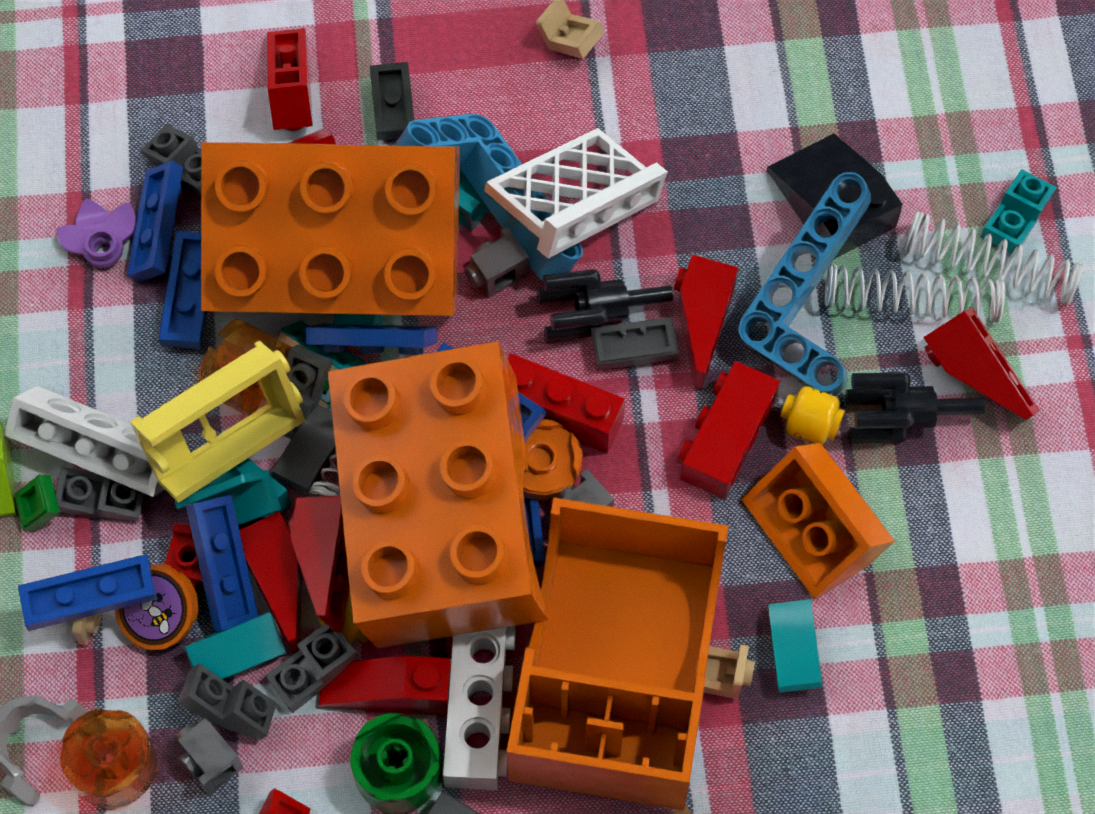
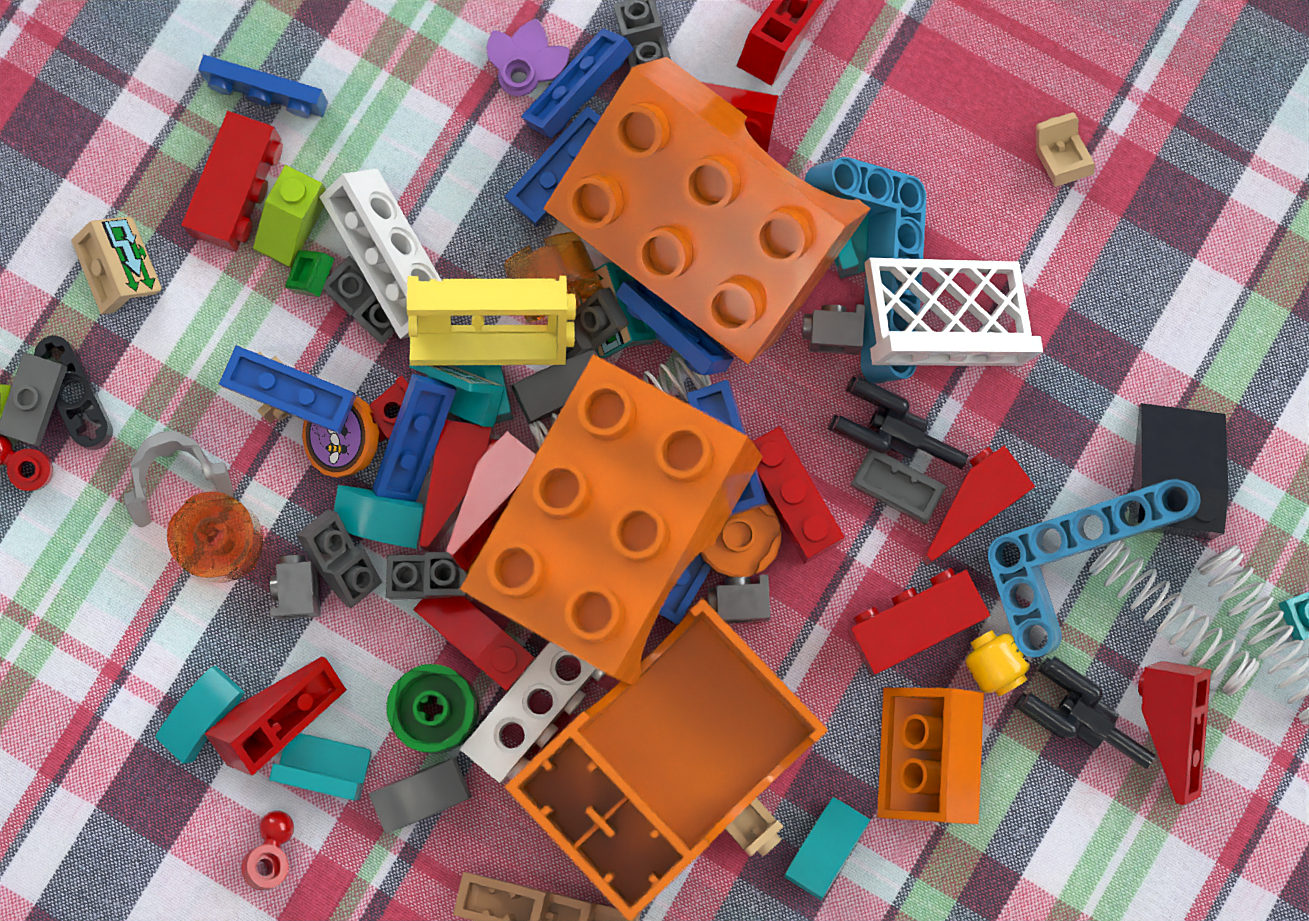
camera: 40 degrees right, 15 degrees up
(391, 99) = (859, 109): pearl dark grey plate -> none

